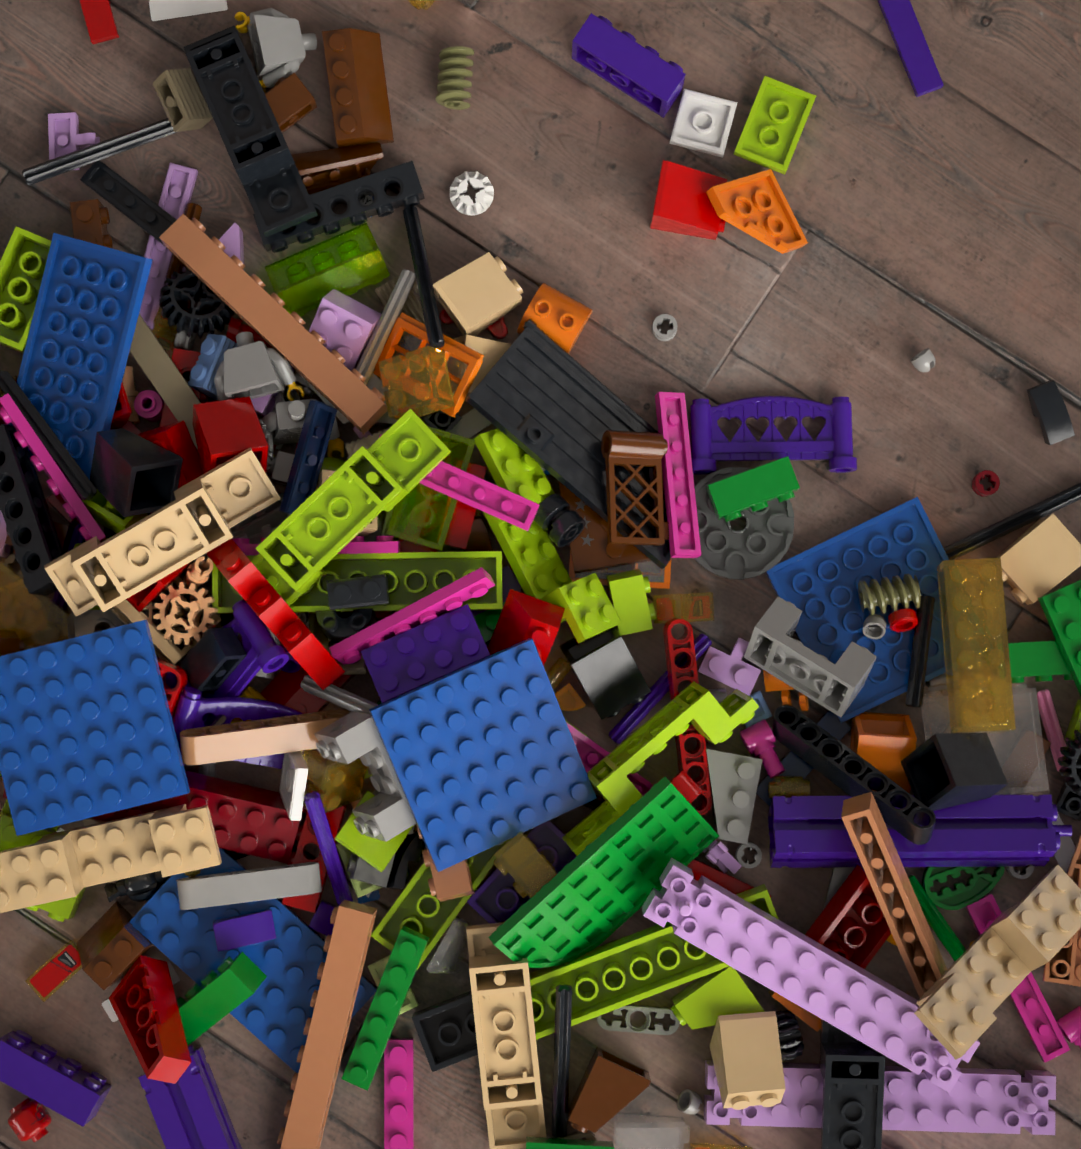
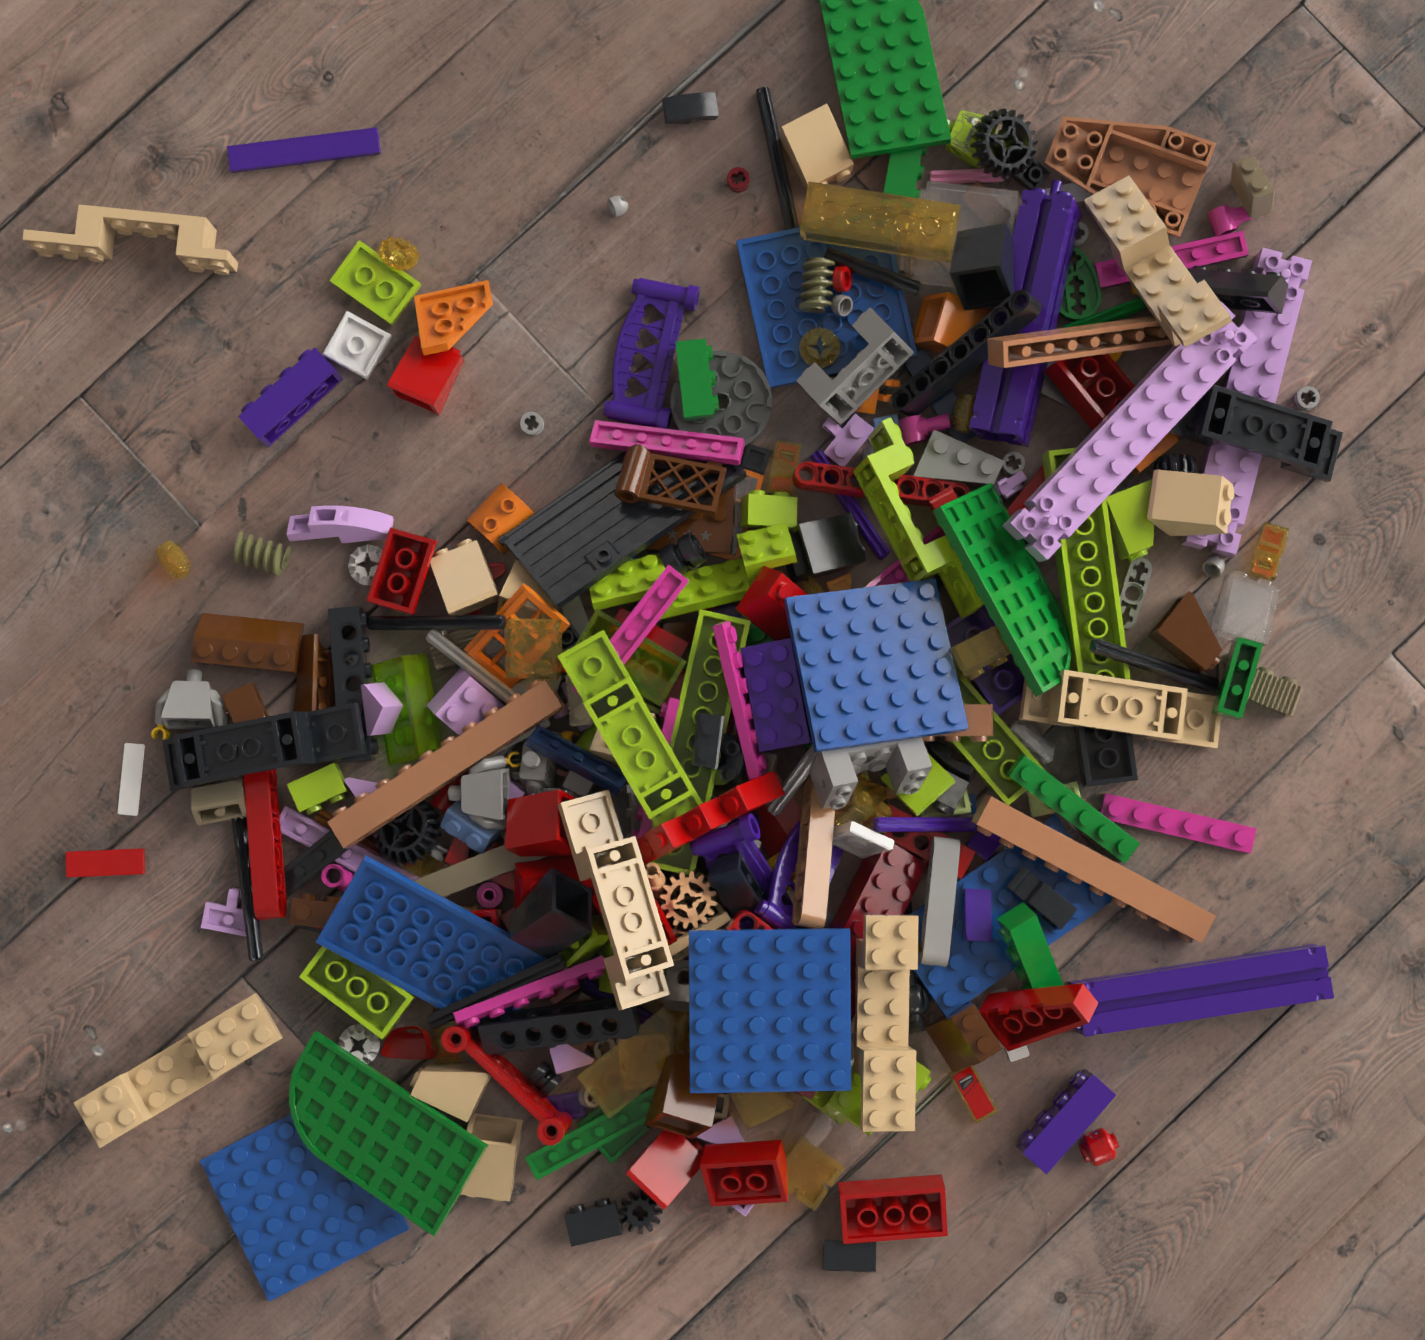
camera: 75 degrees left, 0 degrees up
(126, 232) = (345, 879): none -> dark pink pin
(146, 159) = (265, 845): none -> red beam
(221, 198) = (318, 788): none -> lime brick
(279, 996) = (1041, 898): none -> black piece
(319, 241) = (380, 708): none -> lavender slope
(470, 226) = (401, 571): none -> red slope
(508, 156) = (345, 522): none -> lavender slope
(684, 575) = (755, 459): none -> black tile
(804, 139) = (396, 259): none -> clear yellow gear
(817, 626) = (811, 355): none -> clear yellow gear
(1001, 1064) = (1246, 289): none -> black slope

